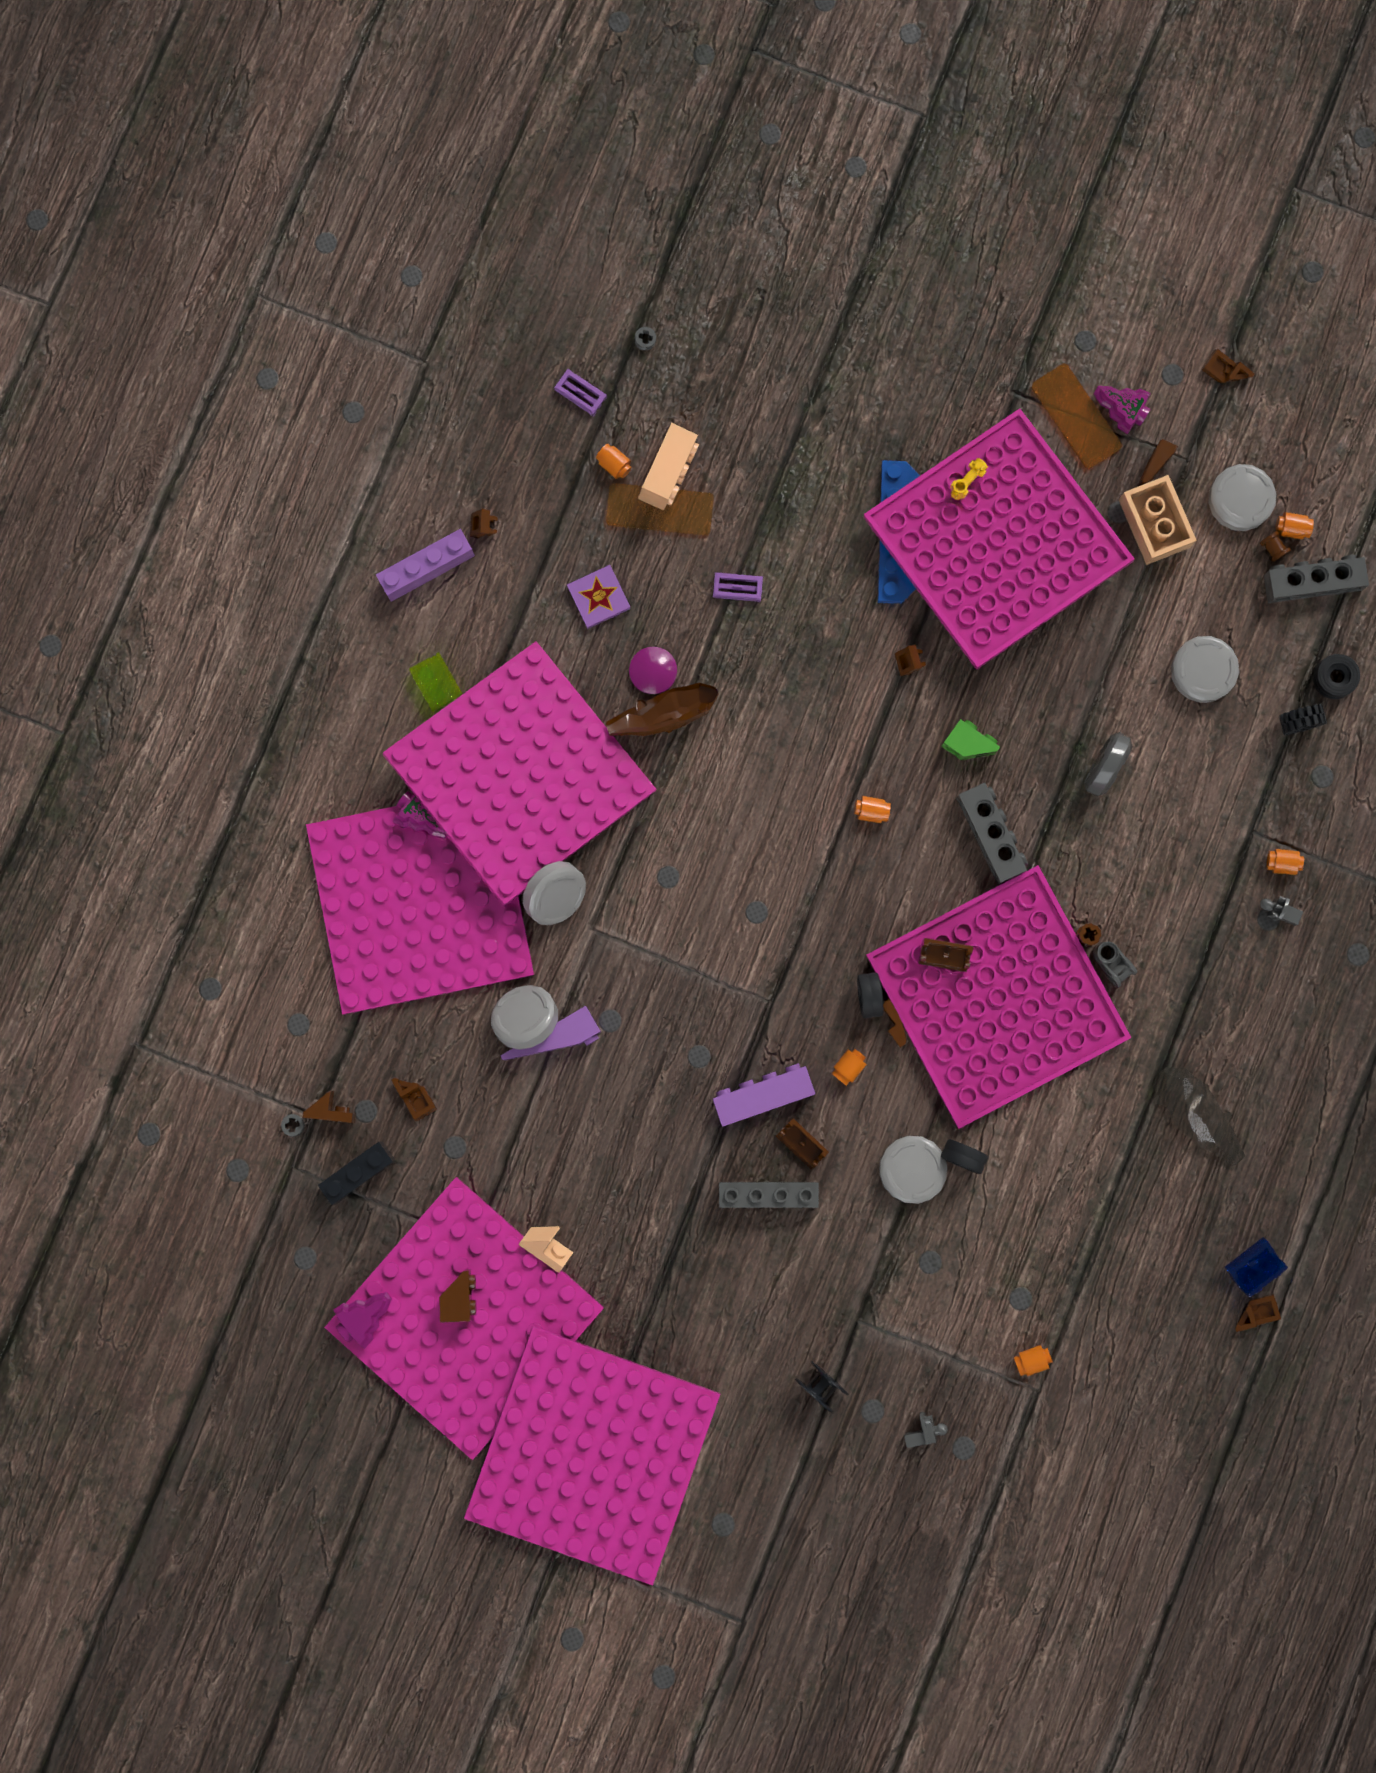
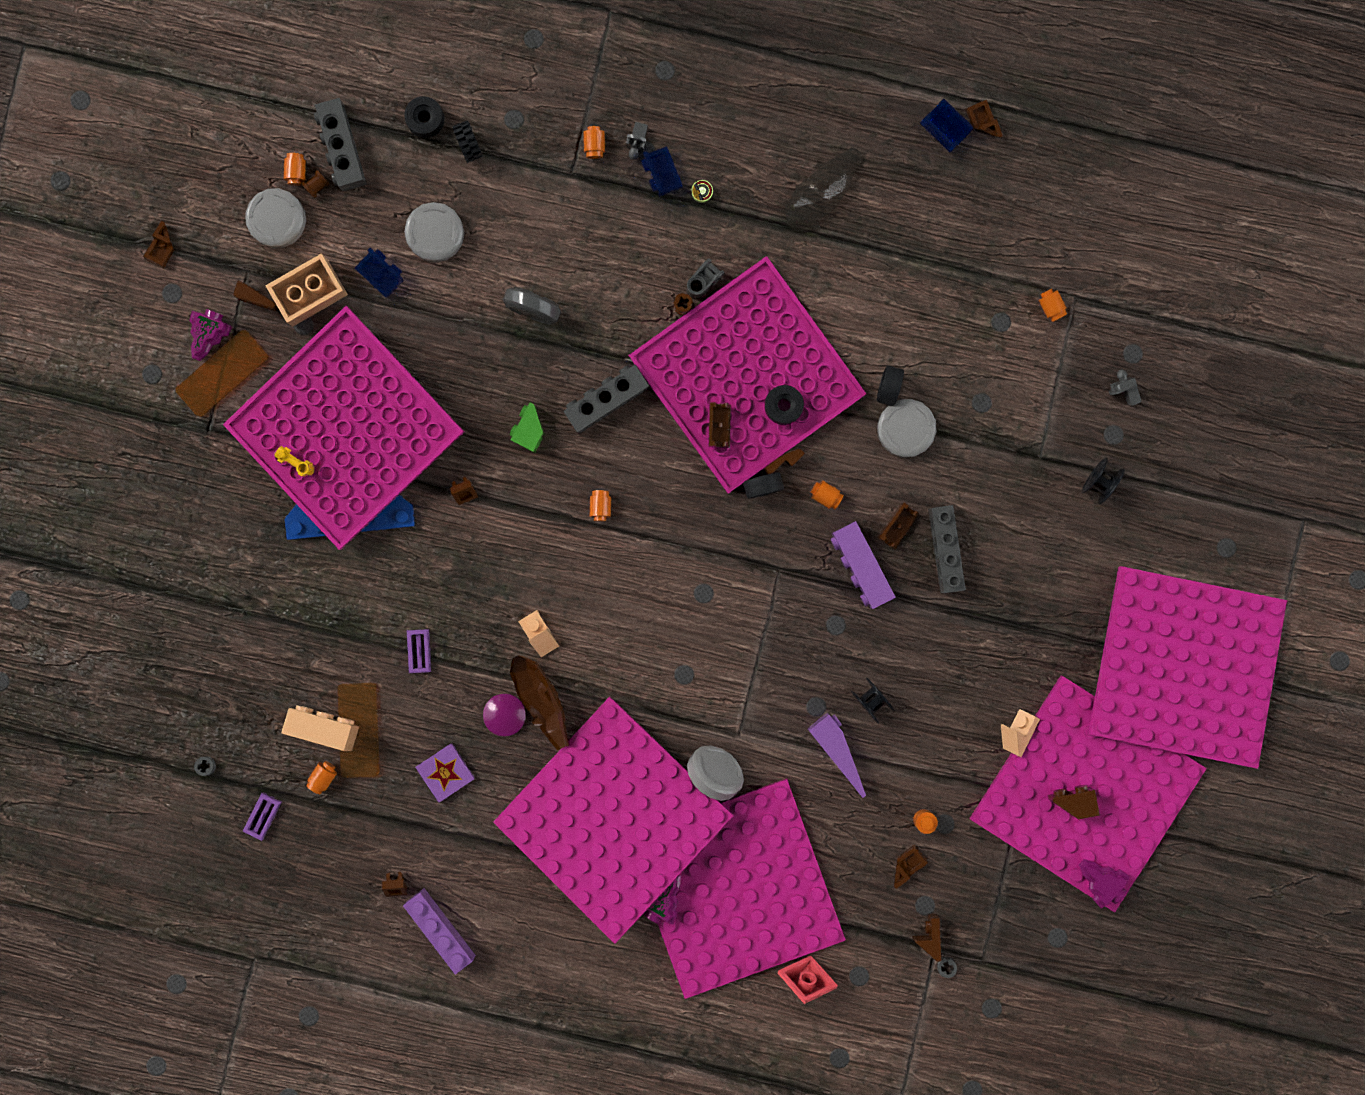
camera: 100 degrees left, 5 degrees up
(307, 962) = (807, 979): none -> coral slope
(356, 1173) = (980, 906): black arch -> none
(435, 682) = (542, 905): clear neon green plate -> none
(462, 1123) = (925, 821): none -> orange brick
(524, 1017) = (826, 782): light grey piece -> none
(608, 1082) = (872, 700): none -> black piece
(737, 721) = (538, 633): none -> light nougat slope
(963, 1018) = (796, 404): none -> black tyre
(1165, 602) = (379, 273): none -> clear blue bracket
(1214, 976) = (702, 191): none -> tile
(1242, 934) = (662, 171): none -> clear blue bracket

